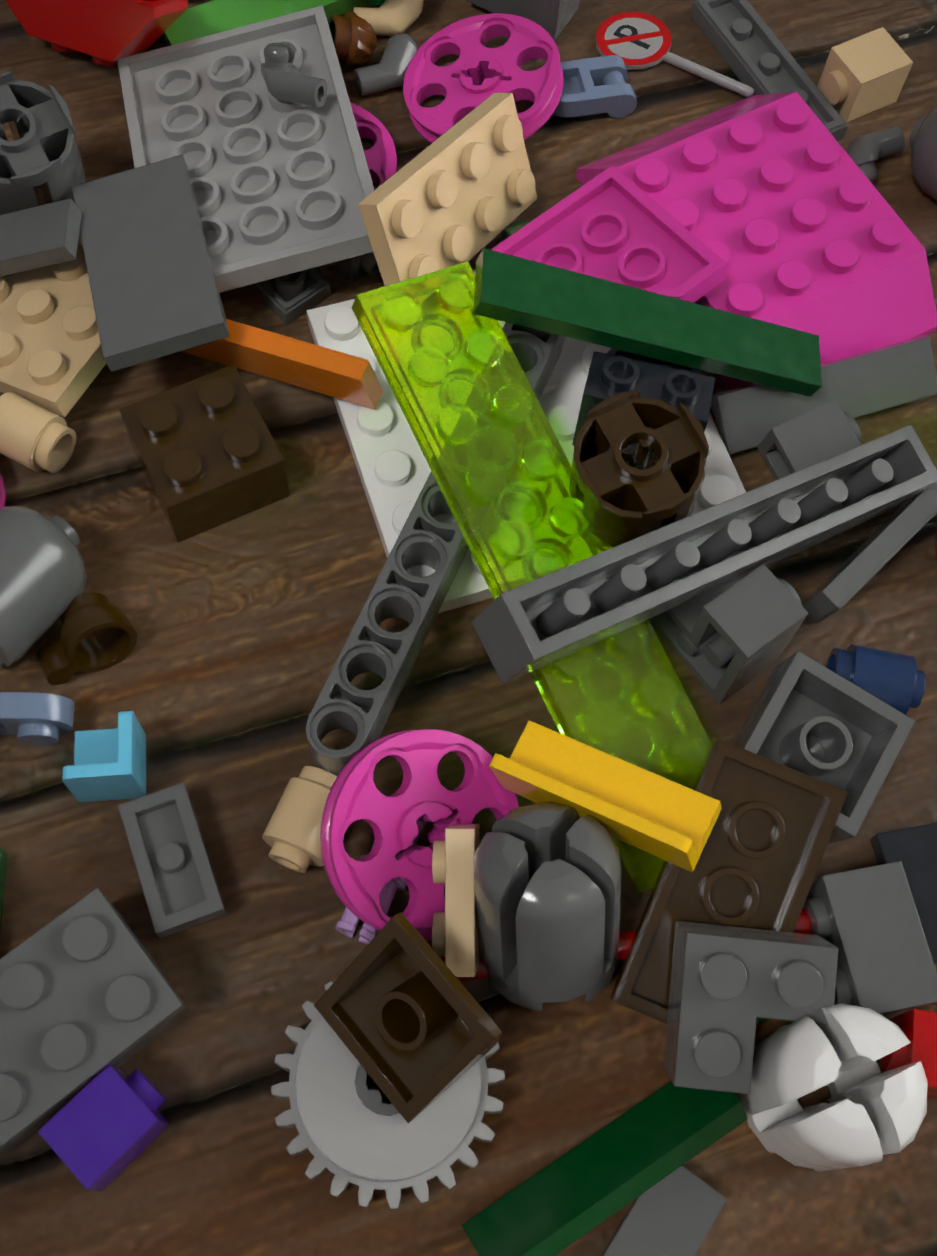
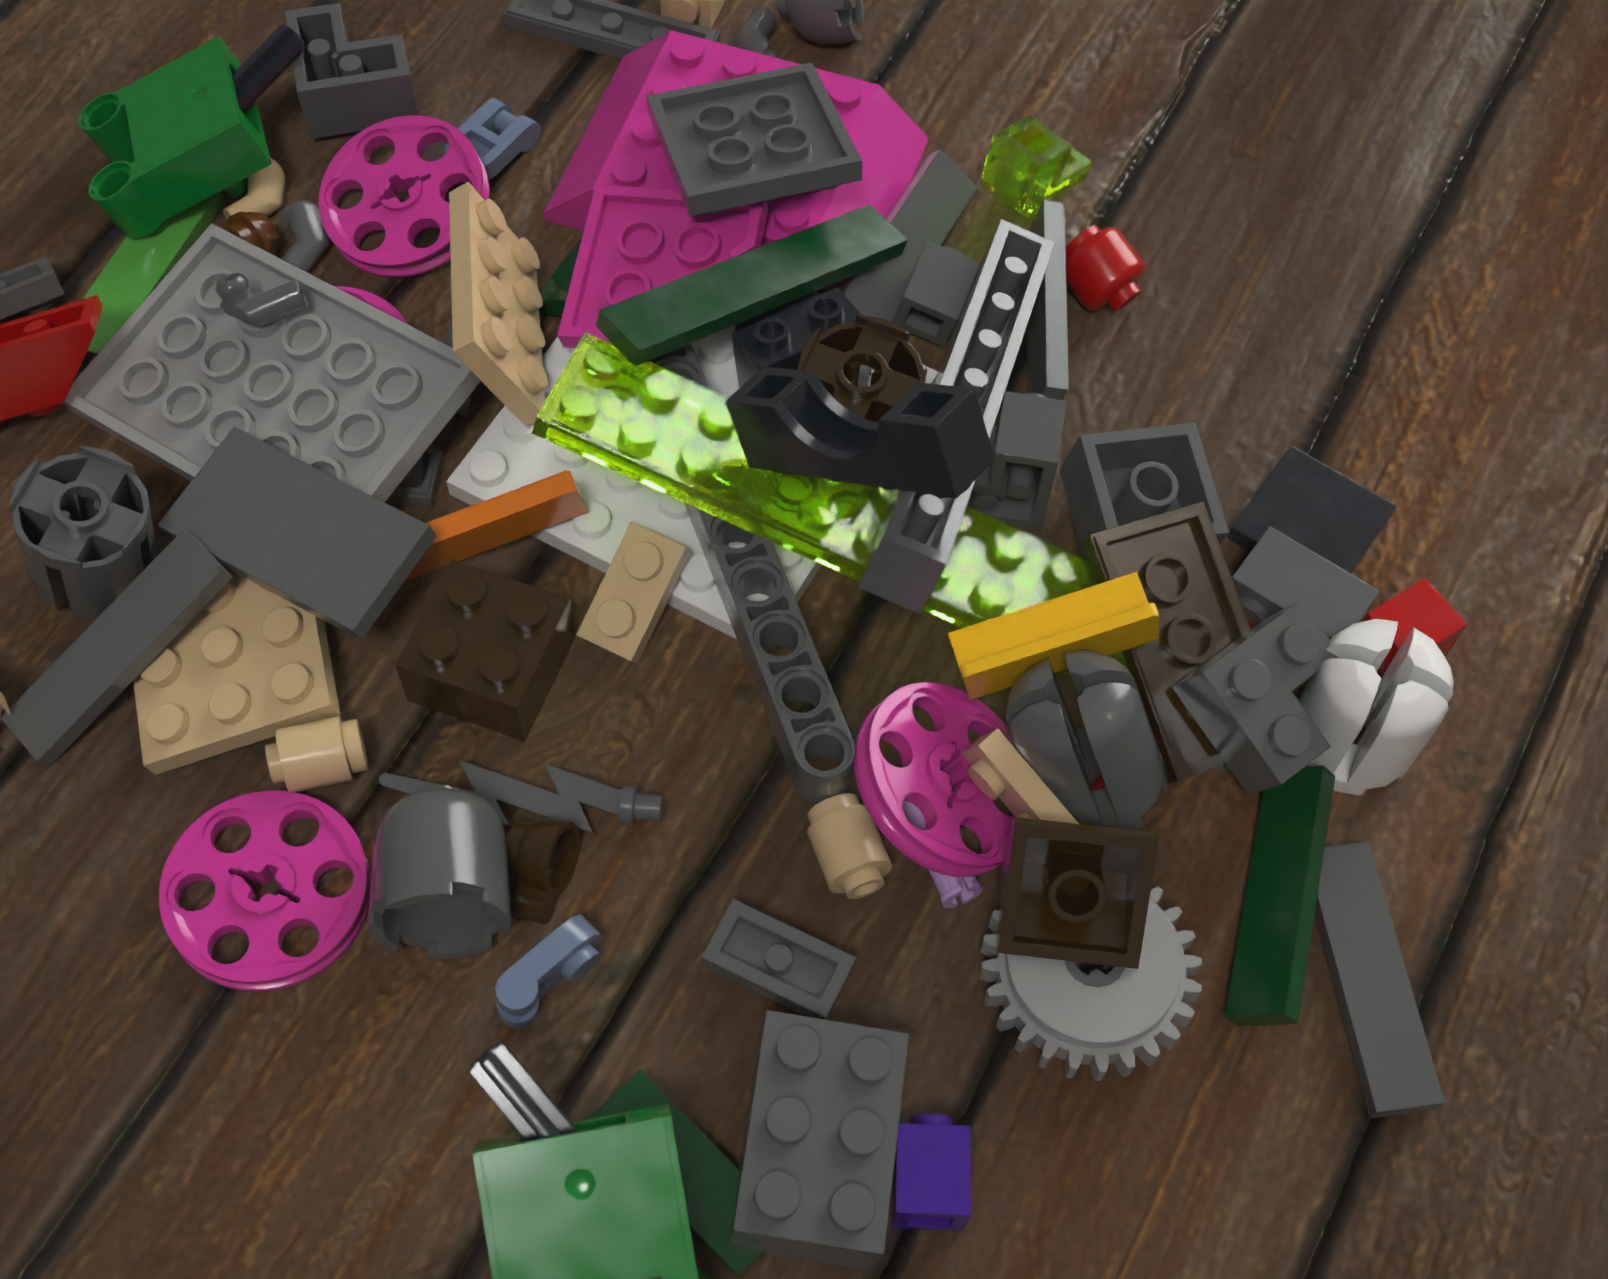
camera: 40 degrees left, 5 degrees down
(109, 762) = (657, 934): medium azure panel -> none
(149, 609) = (566, 805): none -> dark grey piece
(348, 495) = (634, 592): none -> tan plate
(591, 537) = (923, 444): none -> black arch
(646, 42) = (495, 73): light grey piece -> none
(760, 212) = (753, 139): none -> dark grey plate
(881, 673) = (1135, 410): dark blue brick -> none

